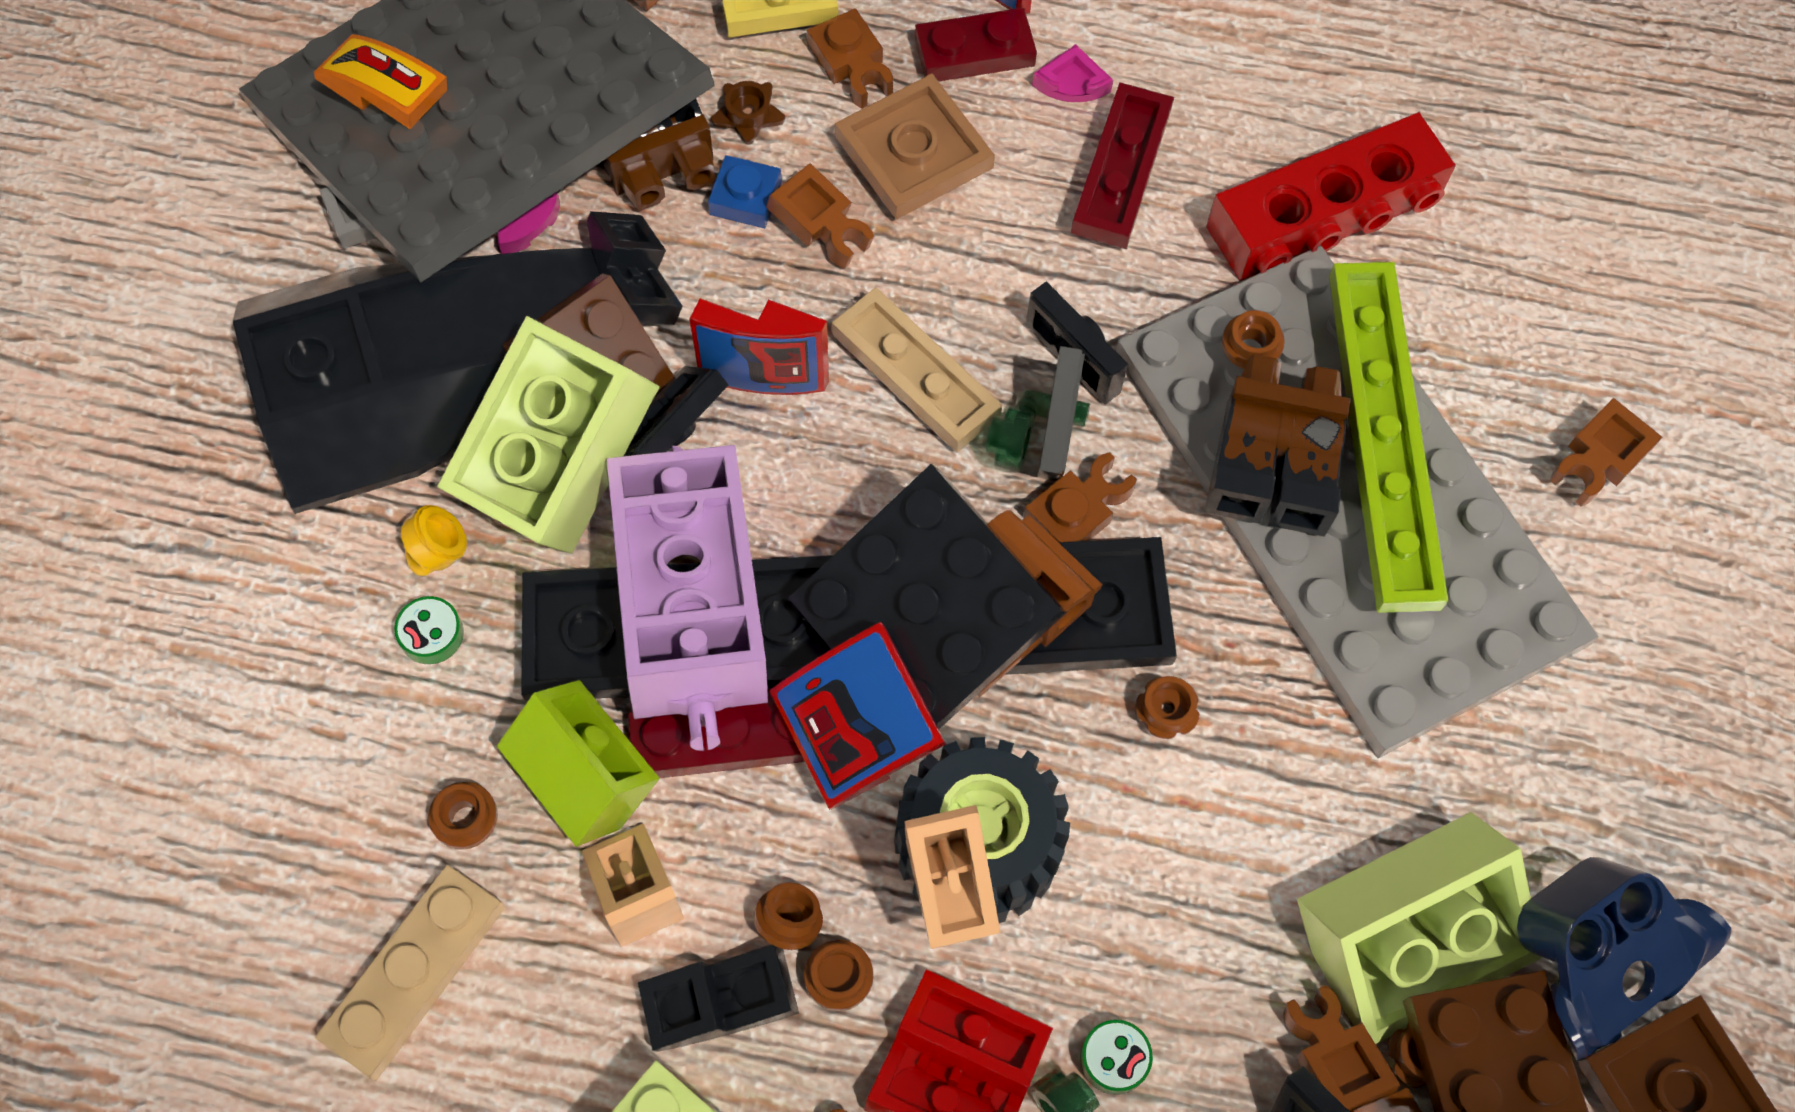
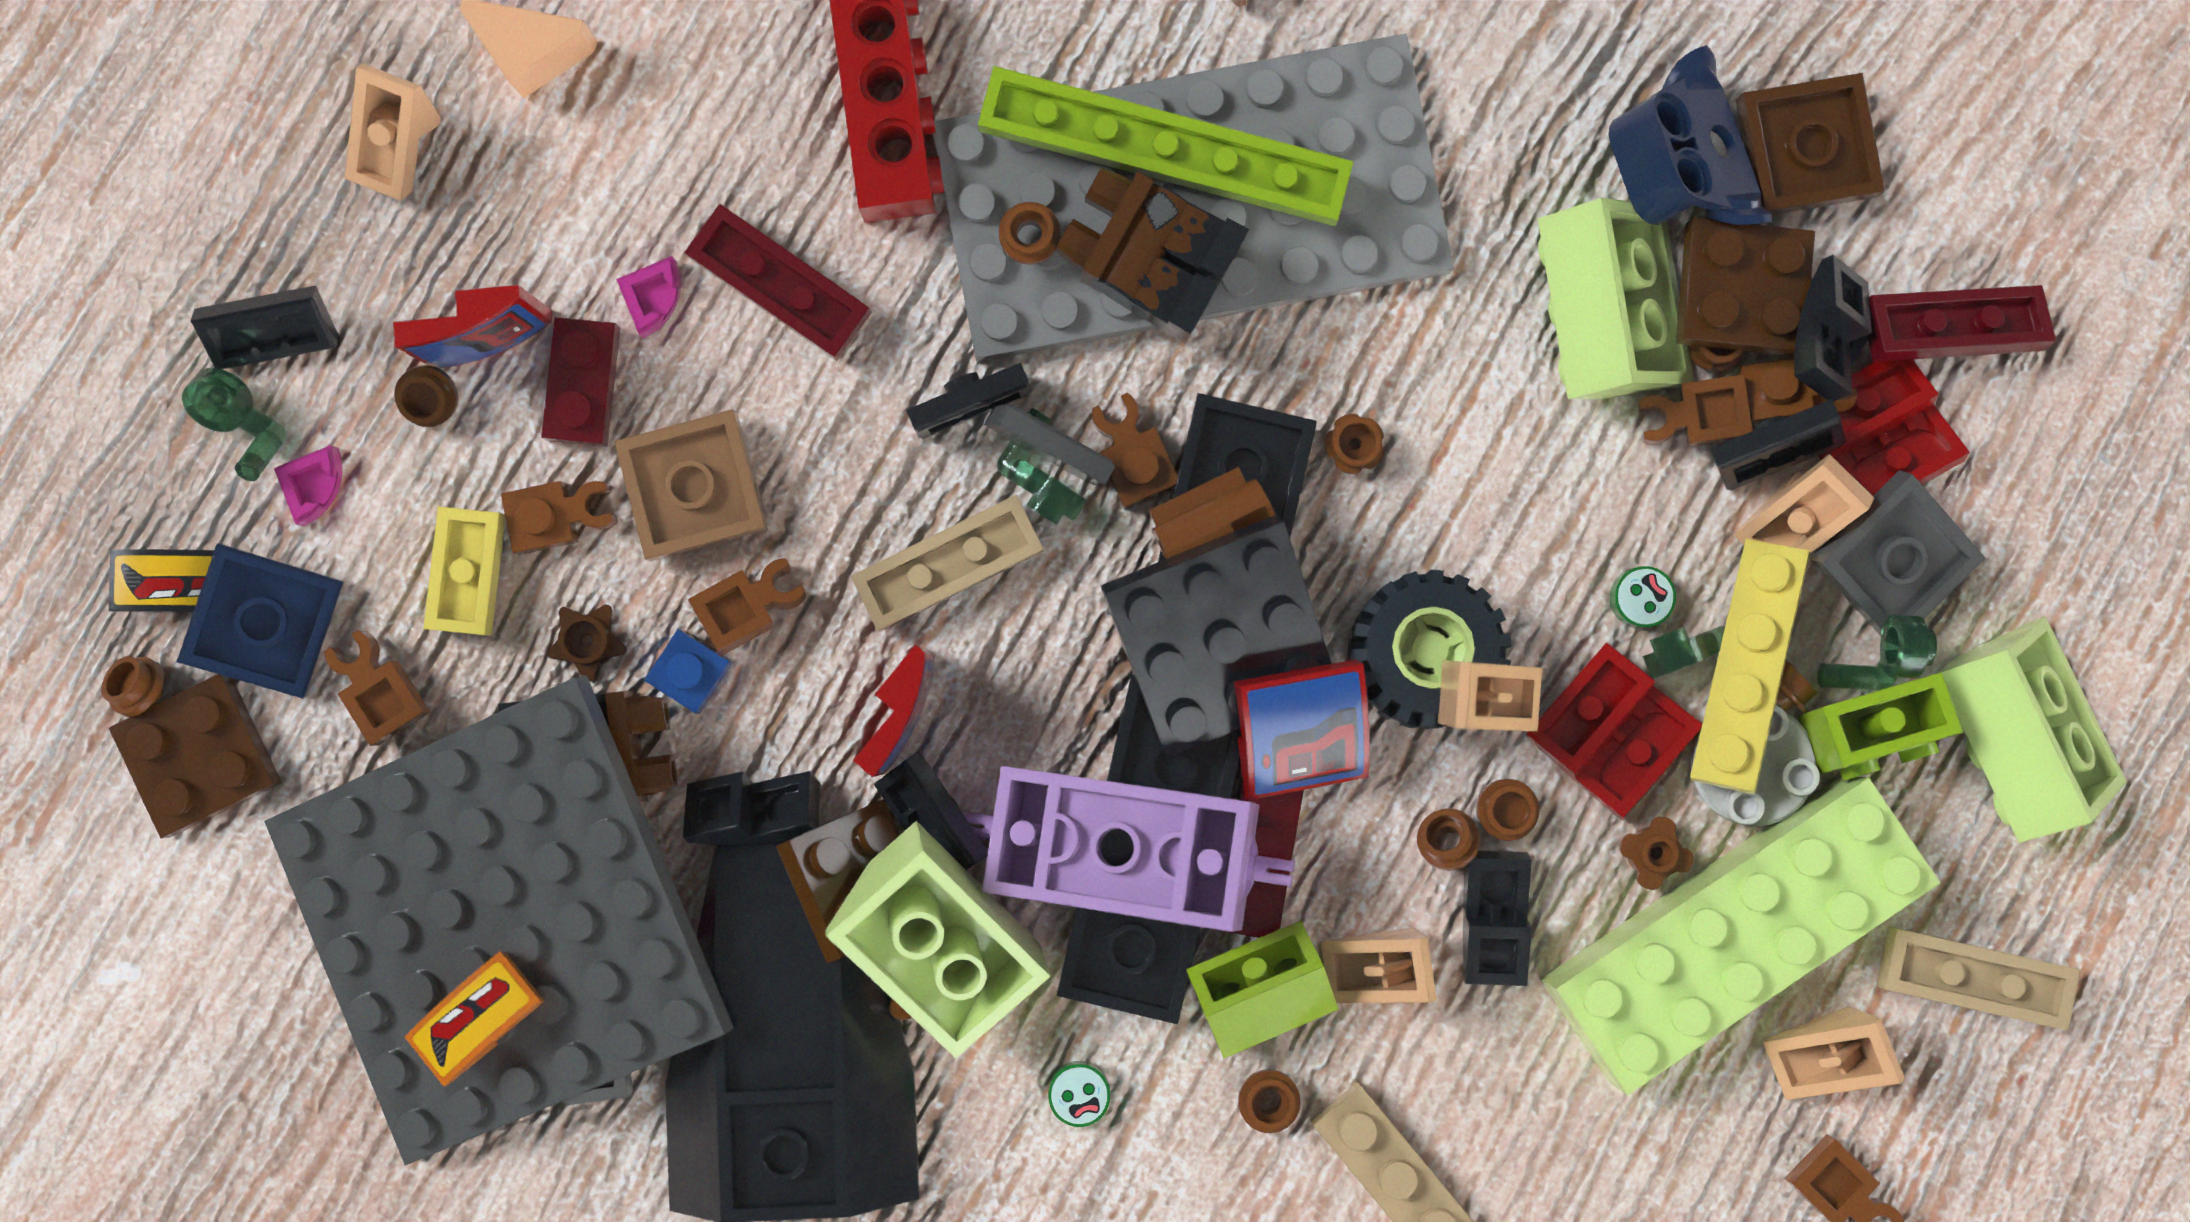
camera: 75 degrees left, 20 degrees up
(432, 540) = (992, 1070): yellow tile -> none

